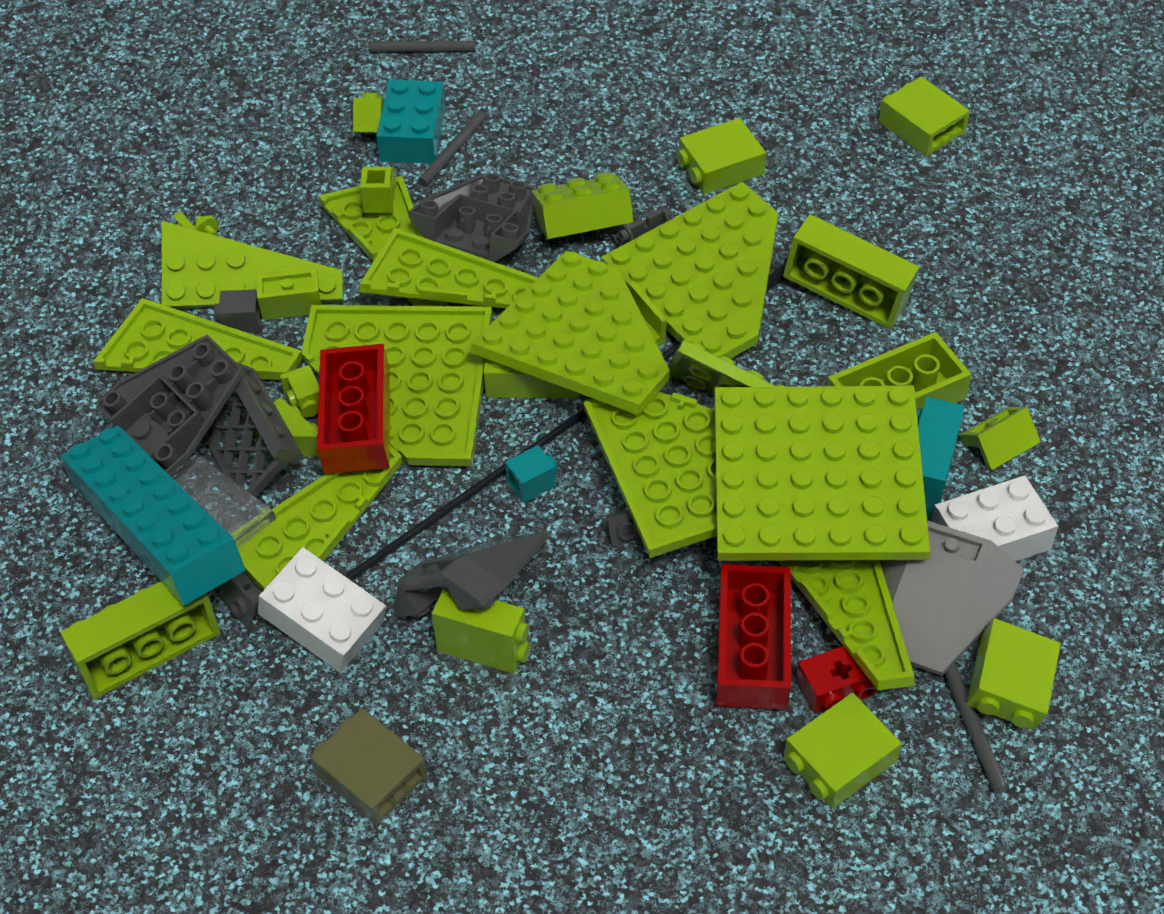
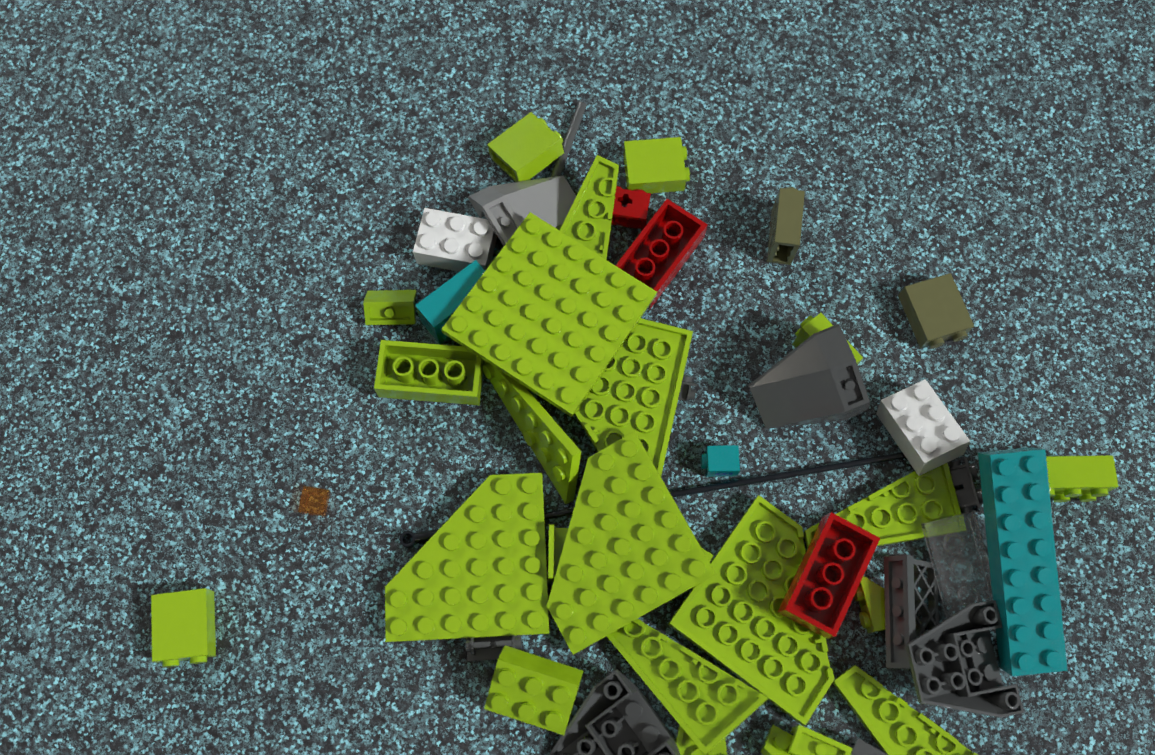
camera: 150 degrees left, 20 degrees up
(301, 390) = (850, 637): lime brick -> none
(621, 749) = (785, 226): none -> olive brick
(721, 156) = (377, 688): lime brick -> none
(850, 271) = (383, 483): lime brick -> none
(907, 247) = (314, 501): none -> clear orange tile

